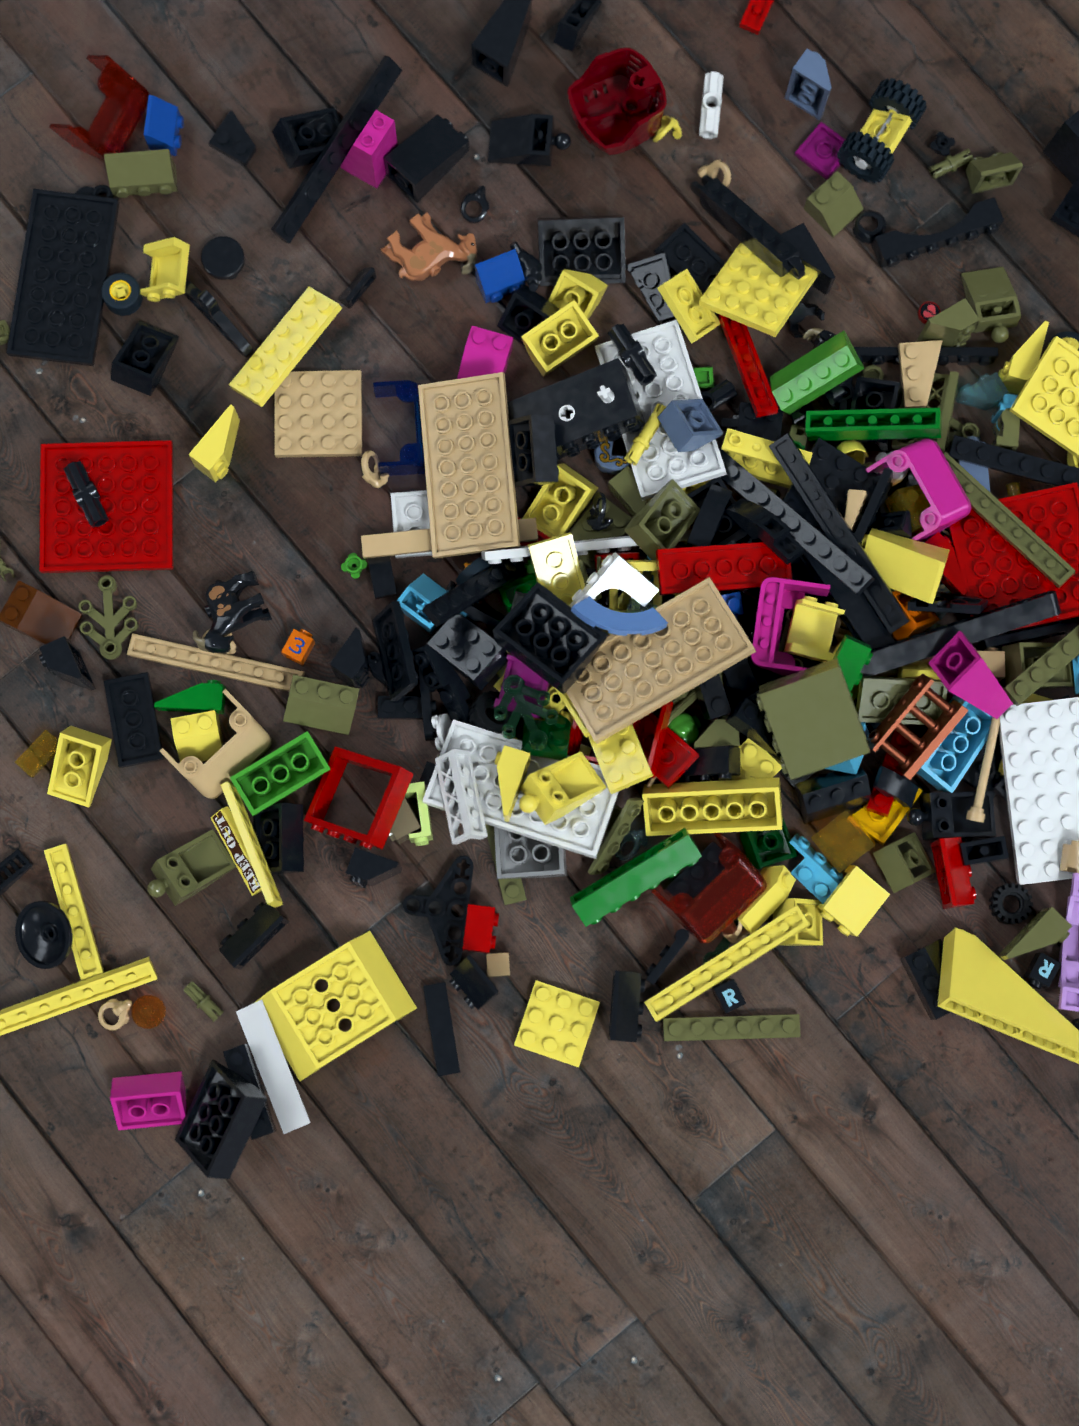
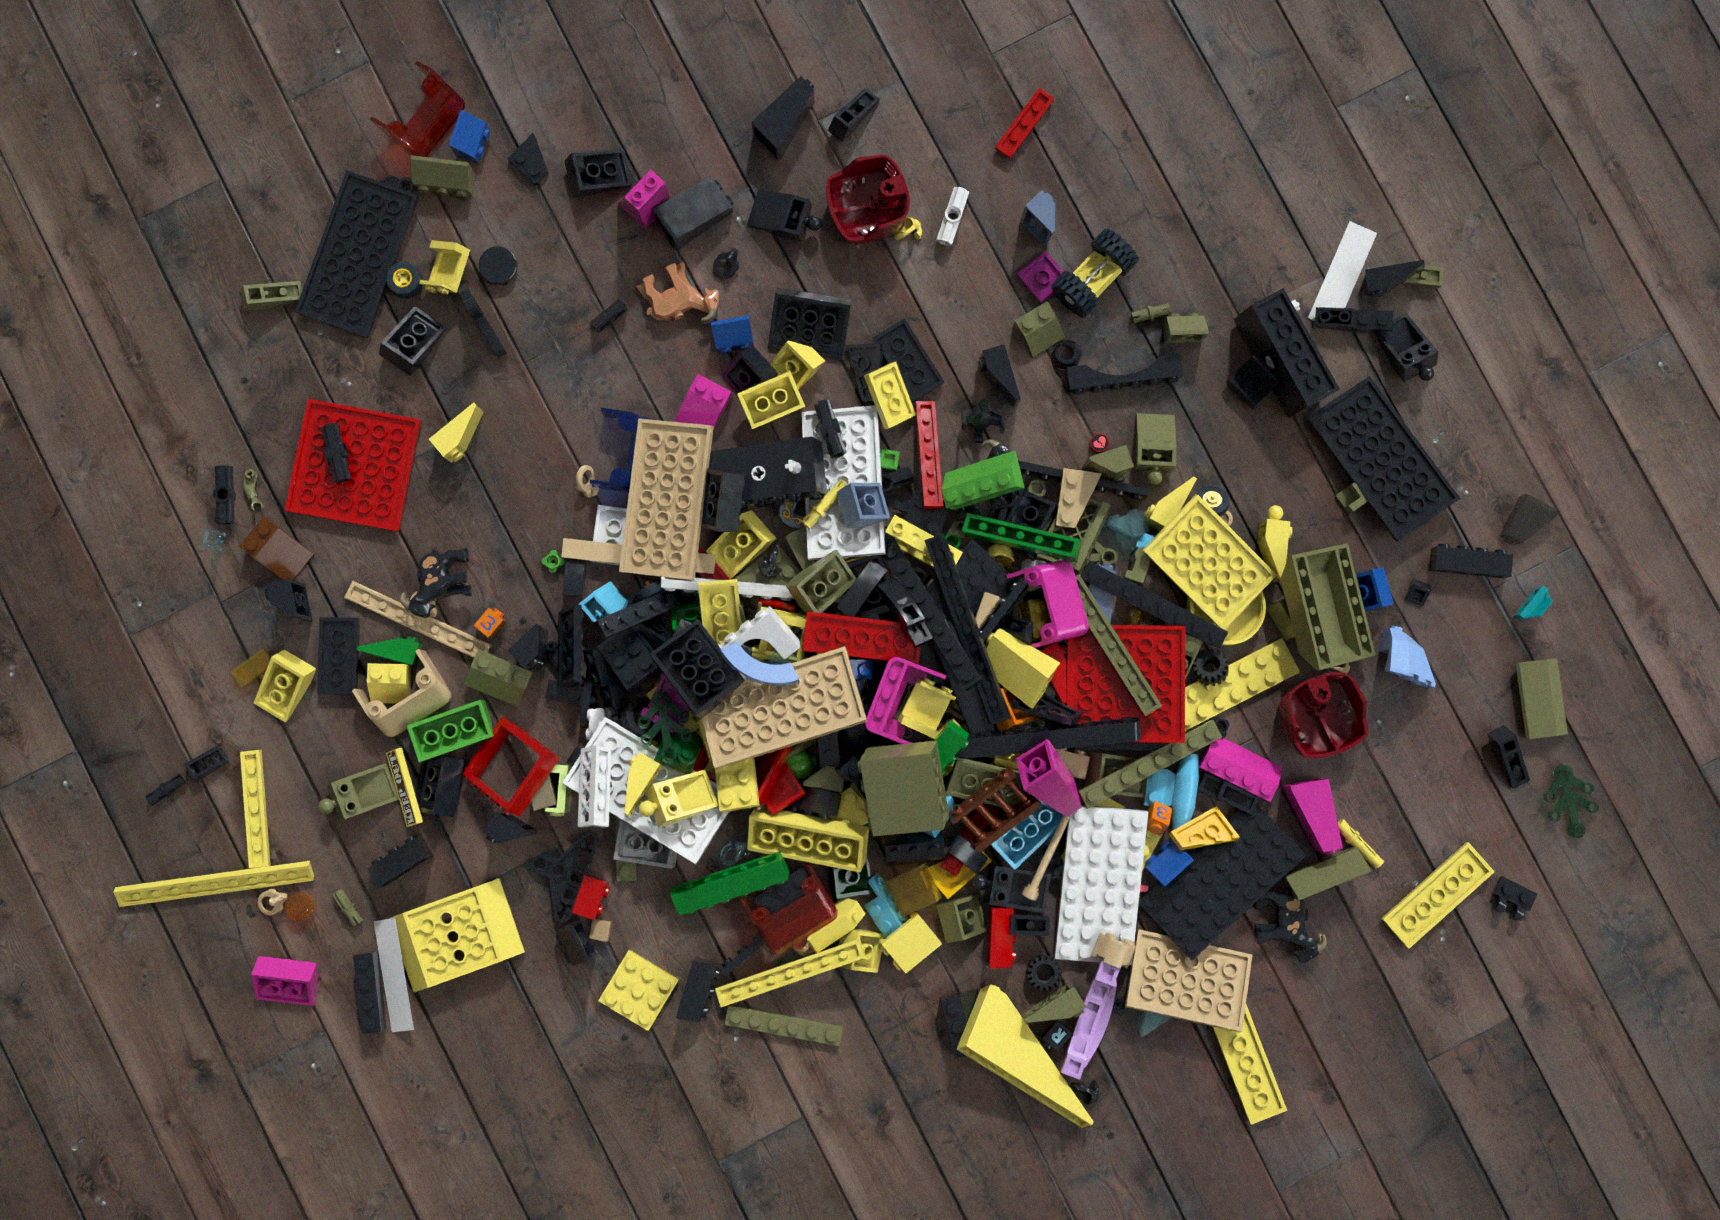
camera: 10 degrees right, 5 degrees up
(43, 934) = (225, 824): black dish -> none
(109, 620) = (335, 565): olive plant -> none
(220, 1121) = (338, 1013): black slope -> none
(252, 845) = (414, 788): light yellow tile -> none
(285, 346) = (534, 356): light yellow plate -> none
(319, 414) = (551, 421): tan plate -> none
(336, 150) = (617, 188): black plate -> none
(441, 1029) = (541, 974): black tile -> none
(530, 266) = (760, 330): black piece -> none
(617, 828) = (721, 841): olive bracket -> none
(712, 171) = (939, 276): tan piece -> none
(728, 995) = (787, 999): black brick -> none
(749, 227) = (957, 337): black hinge -> none
(754, 293) = (952, 393): light yellow plate -> none
(942, 149) = (1147, 298): black plate -> none

